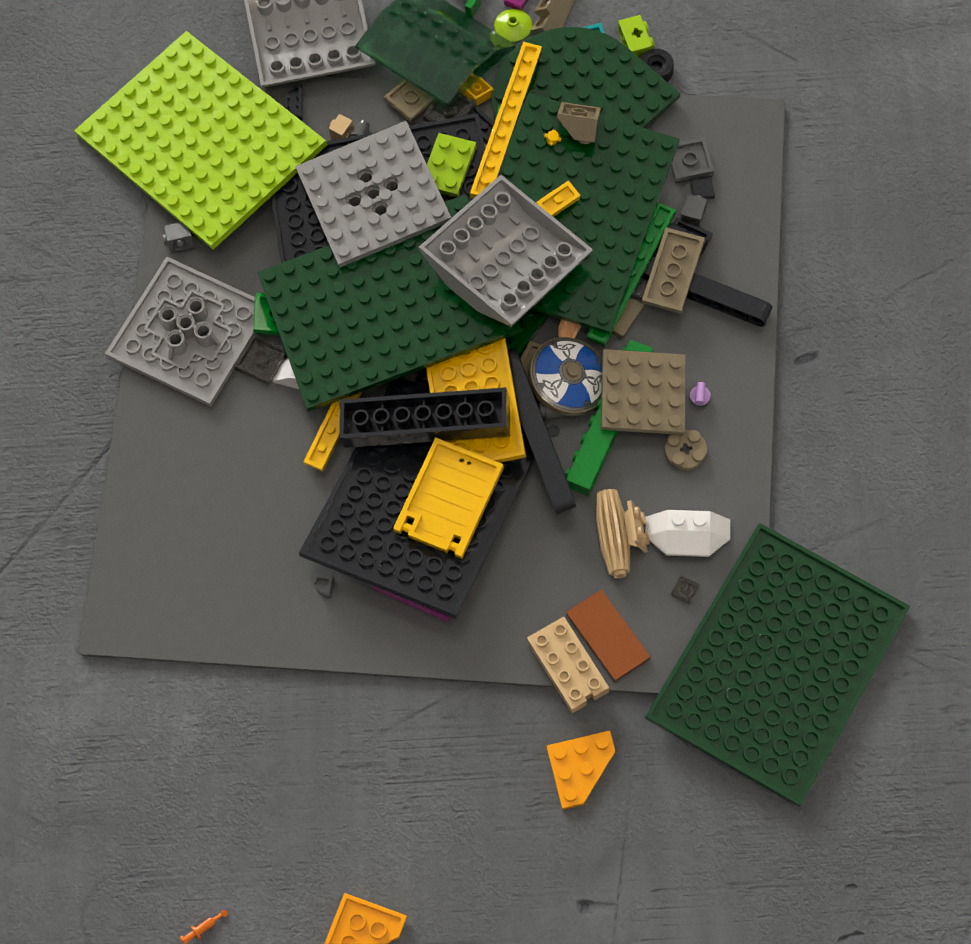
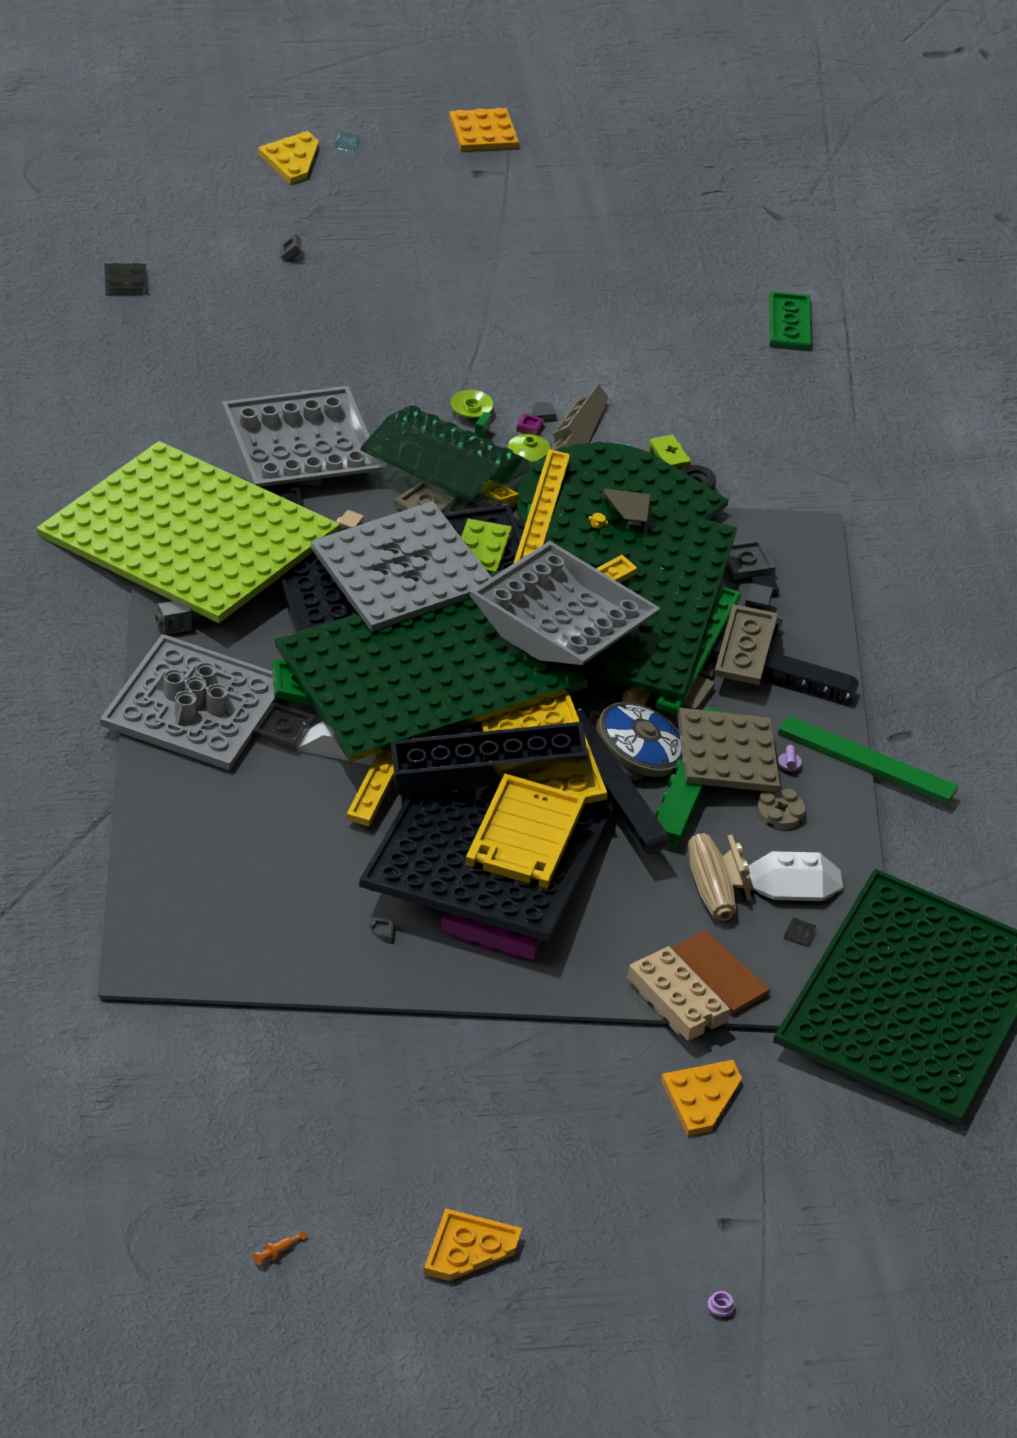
camera: 15 degrees left, 25 degrees down
(771, 392) = (868, 759): none -> green tile

